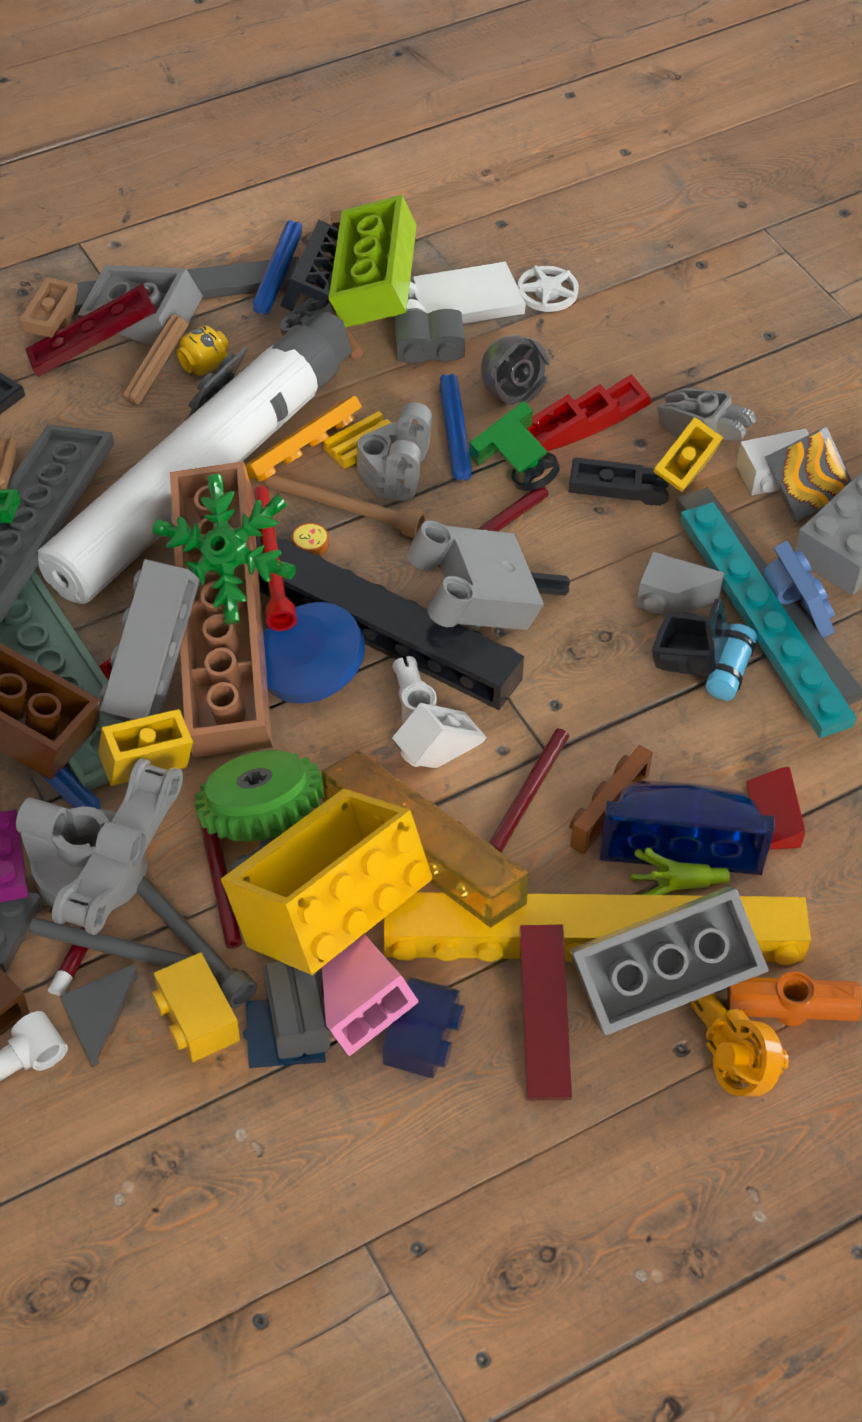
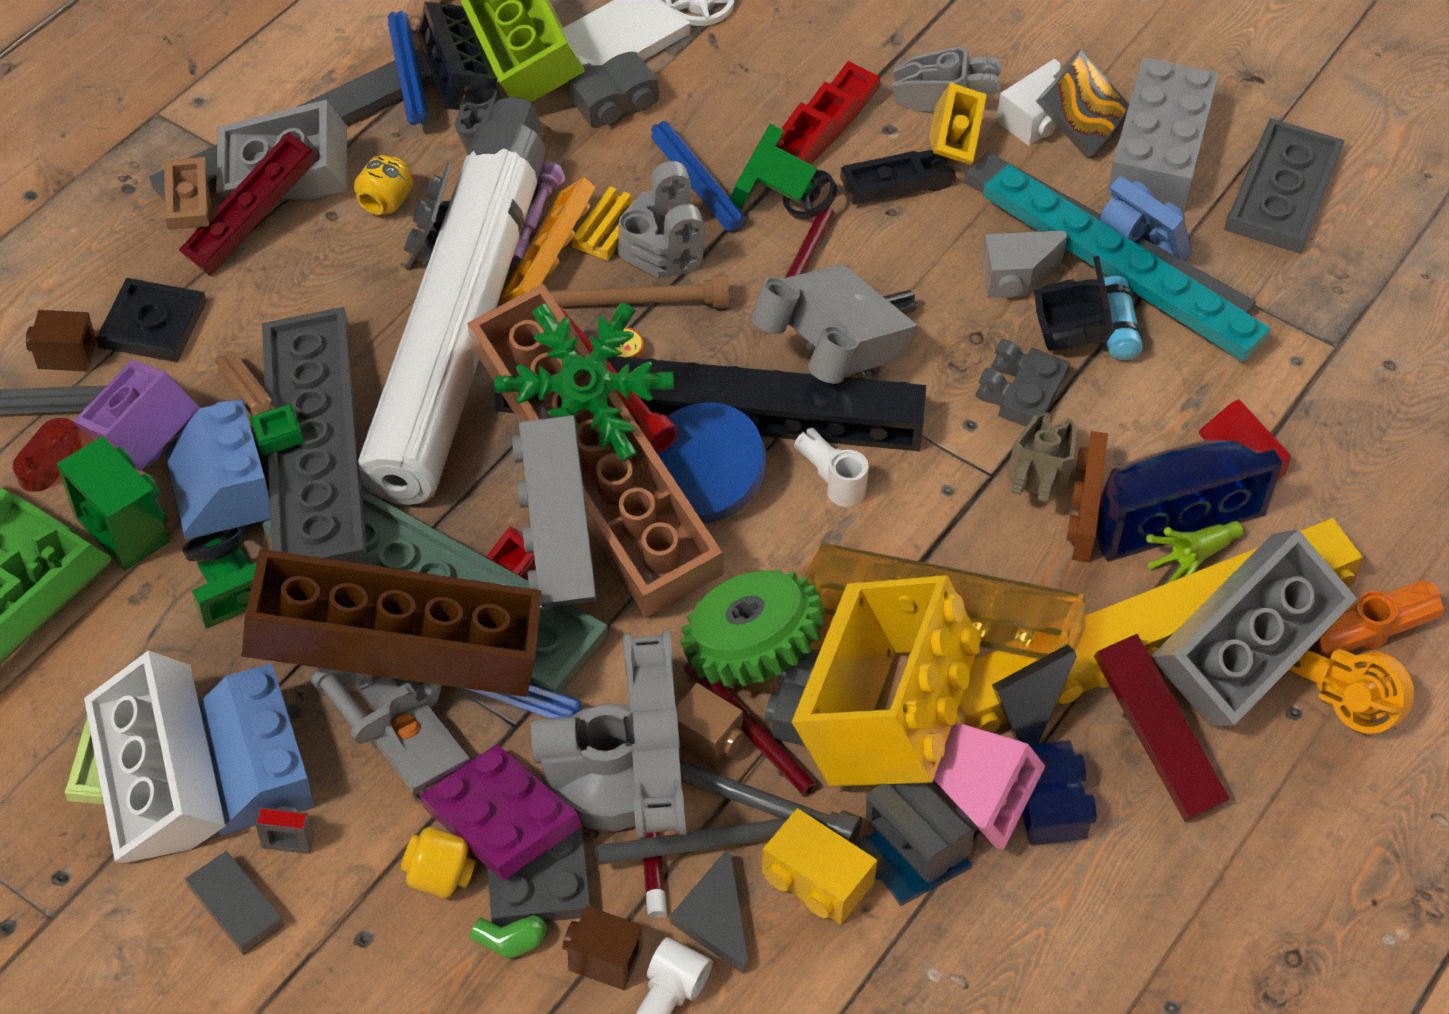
camera: 25 degrees left, 0 degrees up
(155, 359) = (340, 212): medium nougat axle -> none
(157, 738) = (596, 629): yellow brick -> none
(180, 859) = (709, 725): none -> medium nougat brick
(334, 390) = (549, 181): none -> lavender piece
(436, 736) = (883, 500): white slope -> none
(444, 938) = (1032, 694): none -> black tile
(514, 369) = (726, 94): flat silver cylinder -> none
(529, 789) = (1001, 513): dark red bar -> none
(588, 751) = (1043, 458): none -> dark tan hinge
(622, 695) = (1034, 386): none -> dark grey plate

